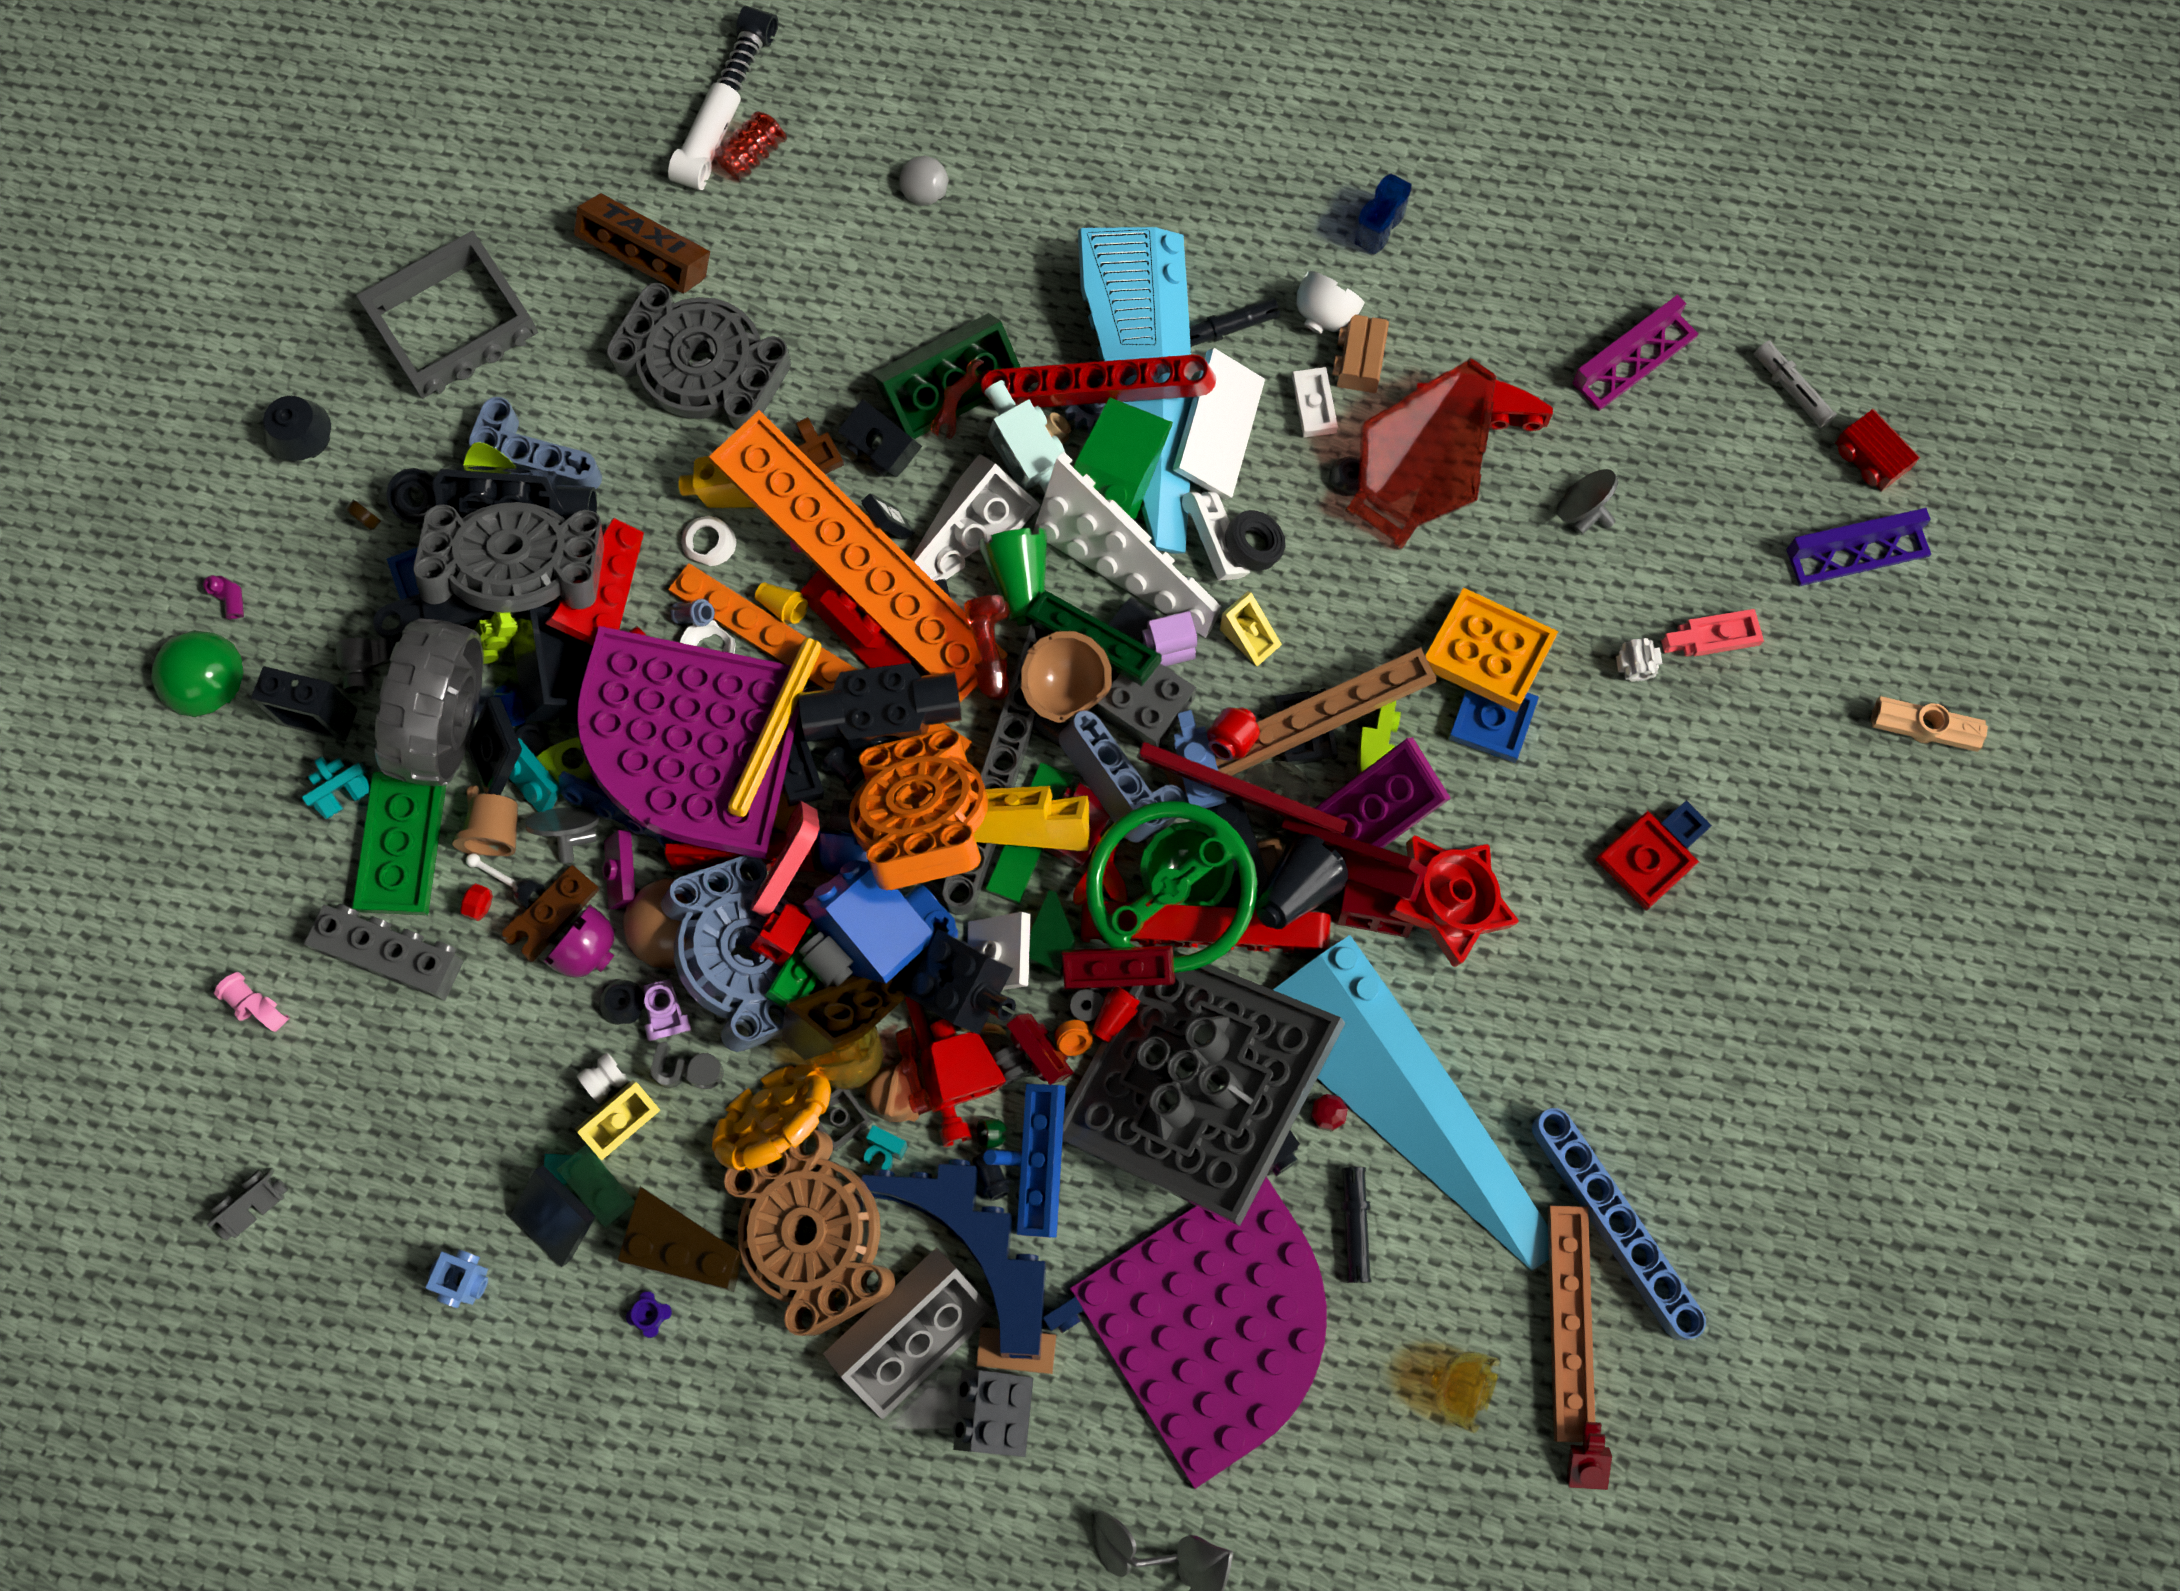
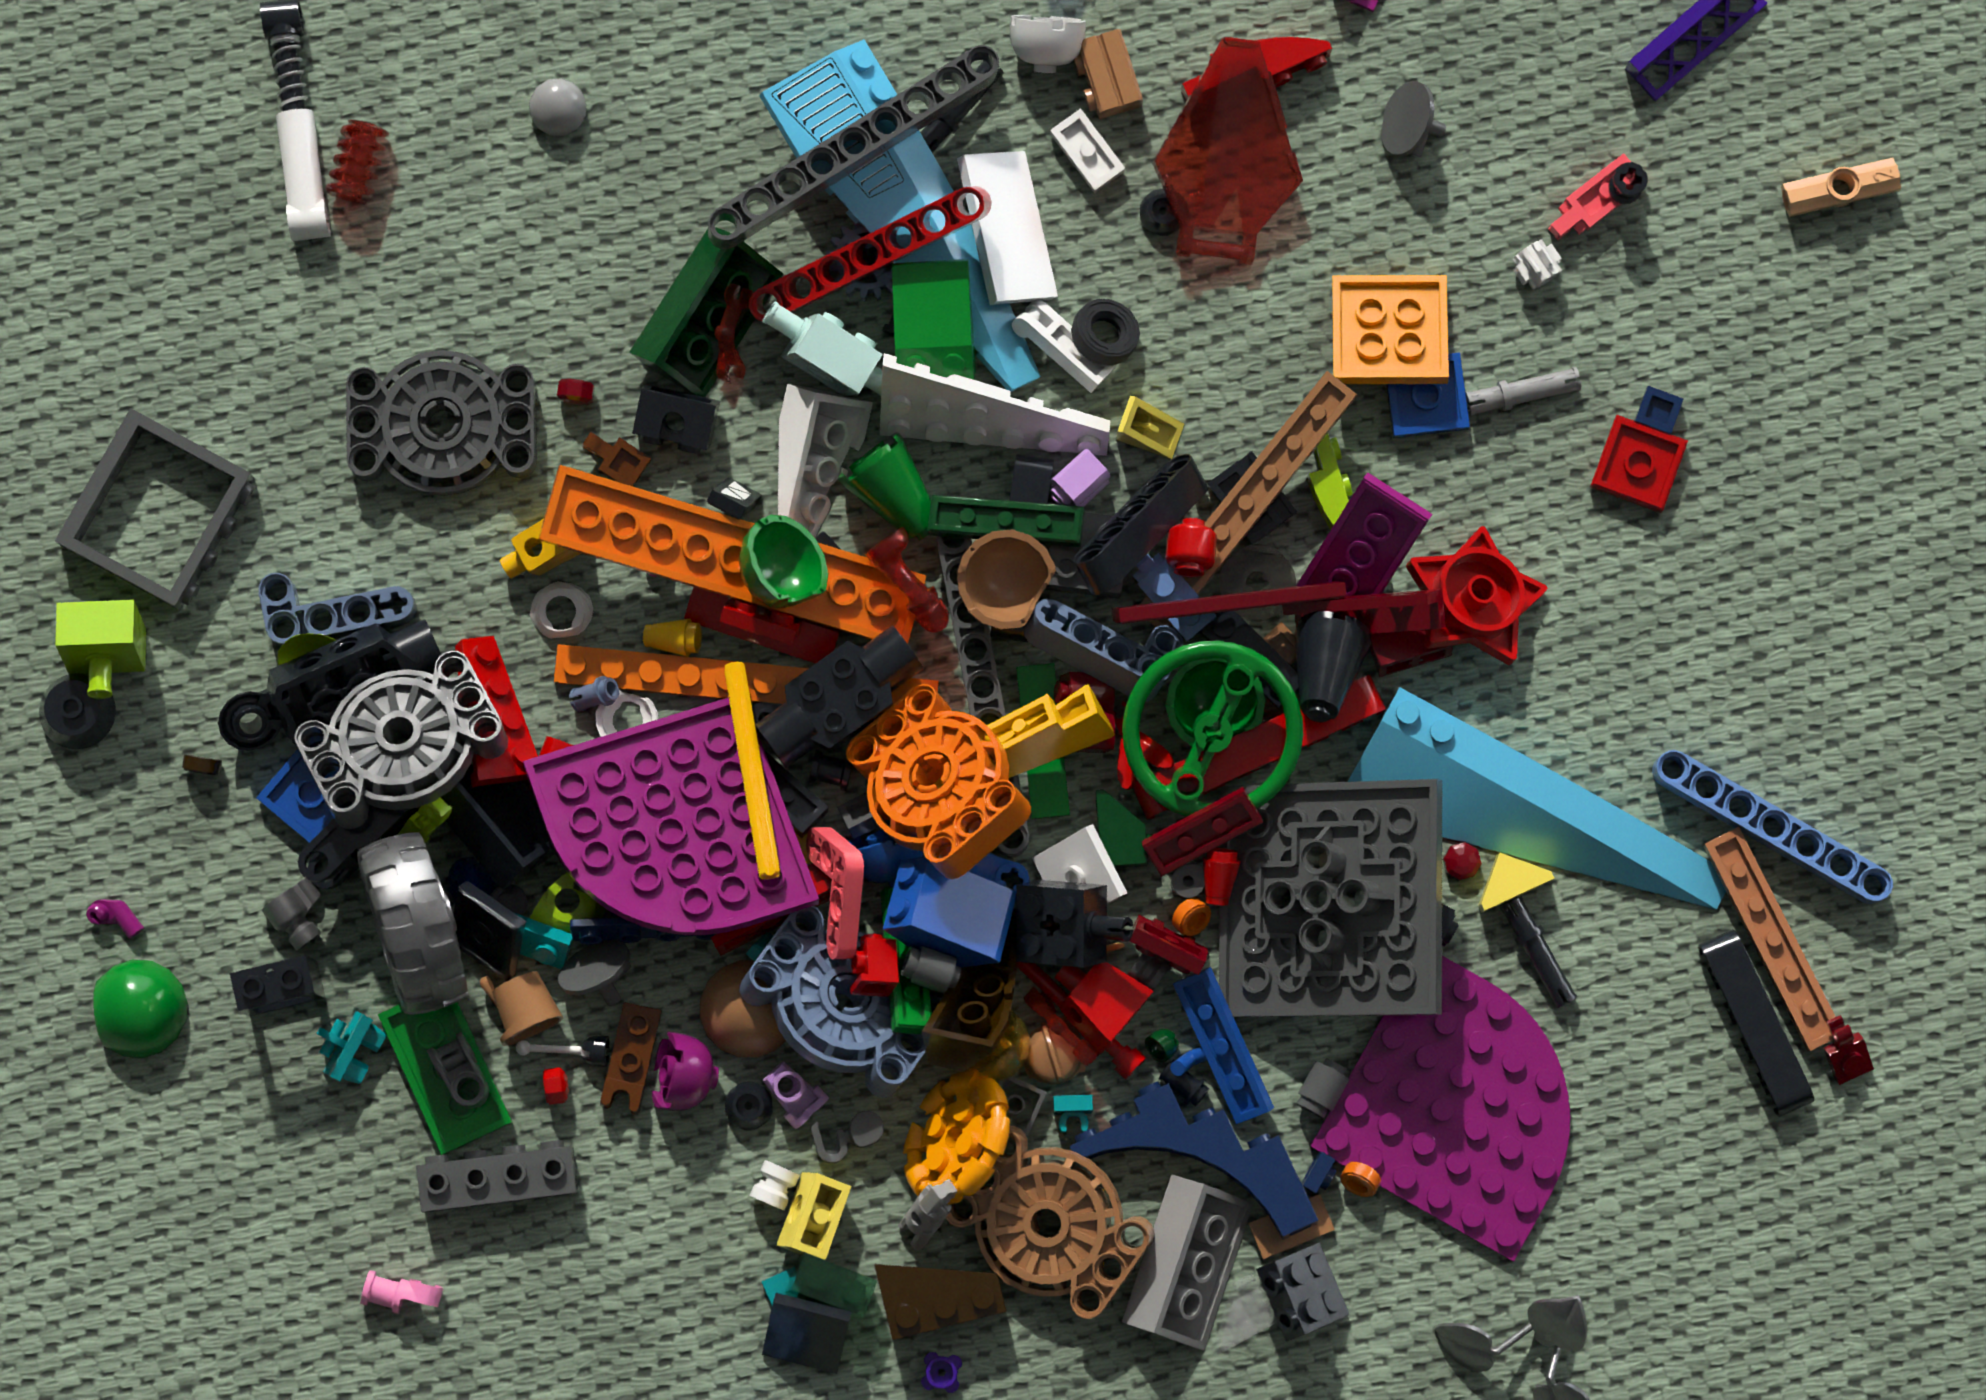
camera: 30 degrees left, 10 degrees up
(341, 380) = (100, 641): none -> lime brick
(405, 841) = (455, 1066): none -> dark grey piece
(619, 869) = (673, 983): magenta plate -> none
(641, 243) = (310, 330): reddish brown brick -> none
(707, 1171) = (928, 1212): none -> light grey hinge
(815, 384) = (575, 392): none -> dark red tile
(891, 572) = (782, 562): none -> green cylinder
(1058, 426) = (847, 311): tan plate -> none
(1097, 1340) = (1360, 1179): none -> orange tile
(1107, 1242) = (1322, 1087): none -> dark grey brick
(1115, 305) = (862, 130): none -> dark grey beam
(1200, 693) = (1140, 524): none -> black beam
(1364, 1149) = (1511, 879): none -> light yellow slope
(1465, 1387) = (1707, 1047): clear yellow cylinder -> none
(1521, 1391) = (1761, 1029): none -> black beam
(1563, 751) = (1522, 391): none -> light grey pin
(1754, 620) = (1617, 187): none -> black bush

